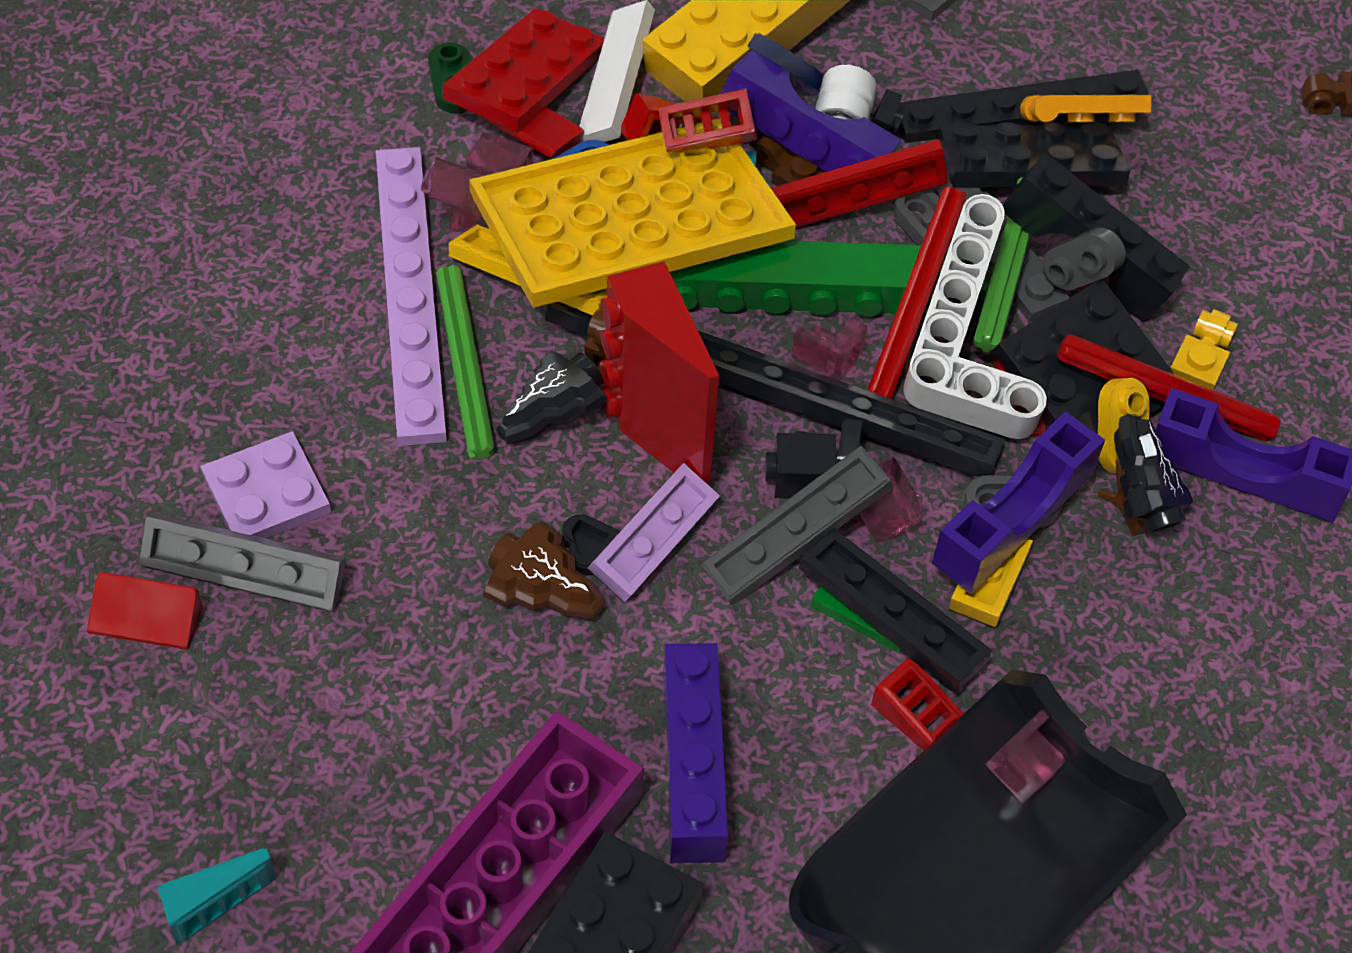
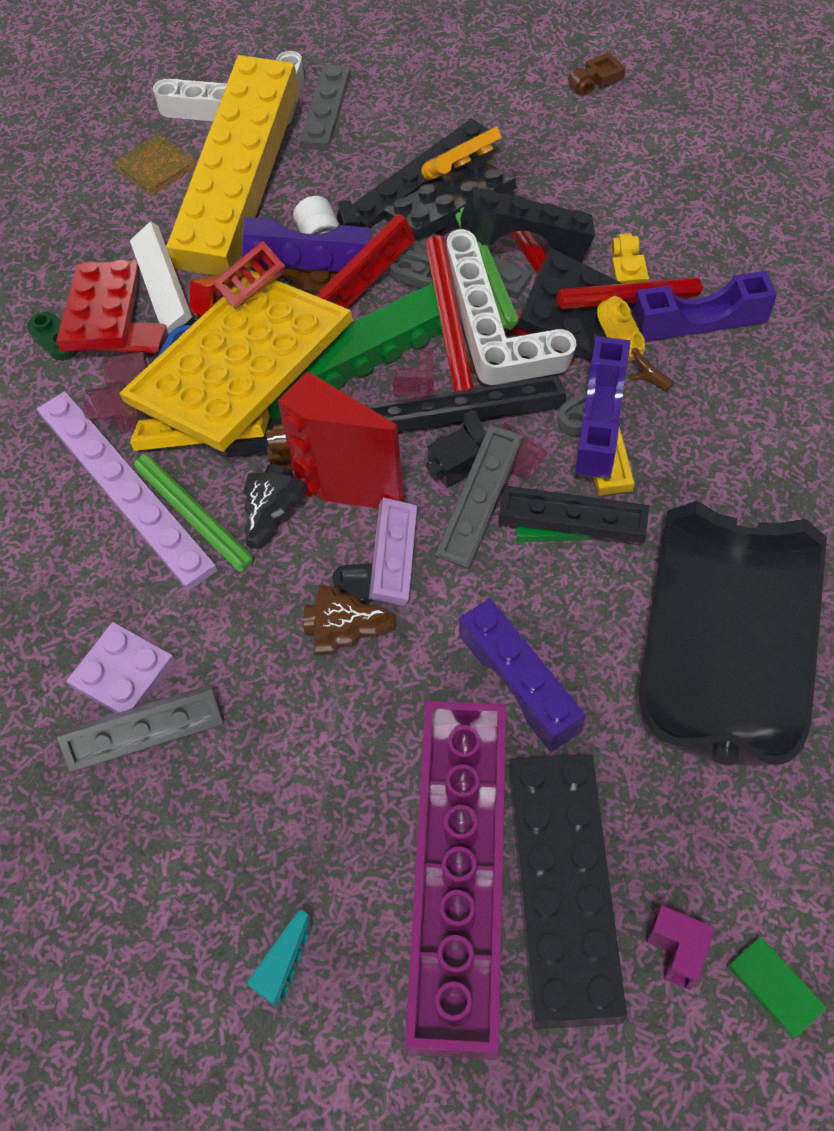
camera: 25 degrees left, 5 degrees up
(144, 610) = (96, 801): red slope -> none
(786, 59) = (267, 212): clear blue tile -> none
(900, 712) = (618, 575): red slope -> none
(1026, 760) = (713, 559): clear pink panel -> none
(1084, 259) = (530, 244): dark grey plate -> none
(1148, 476) = (658, 349): black rock -> none

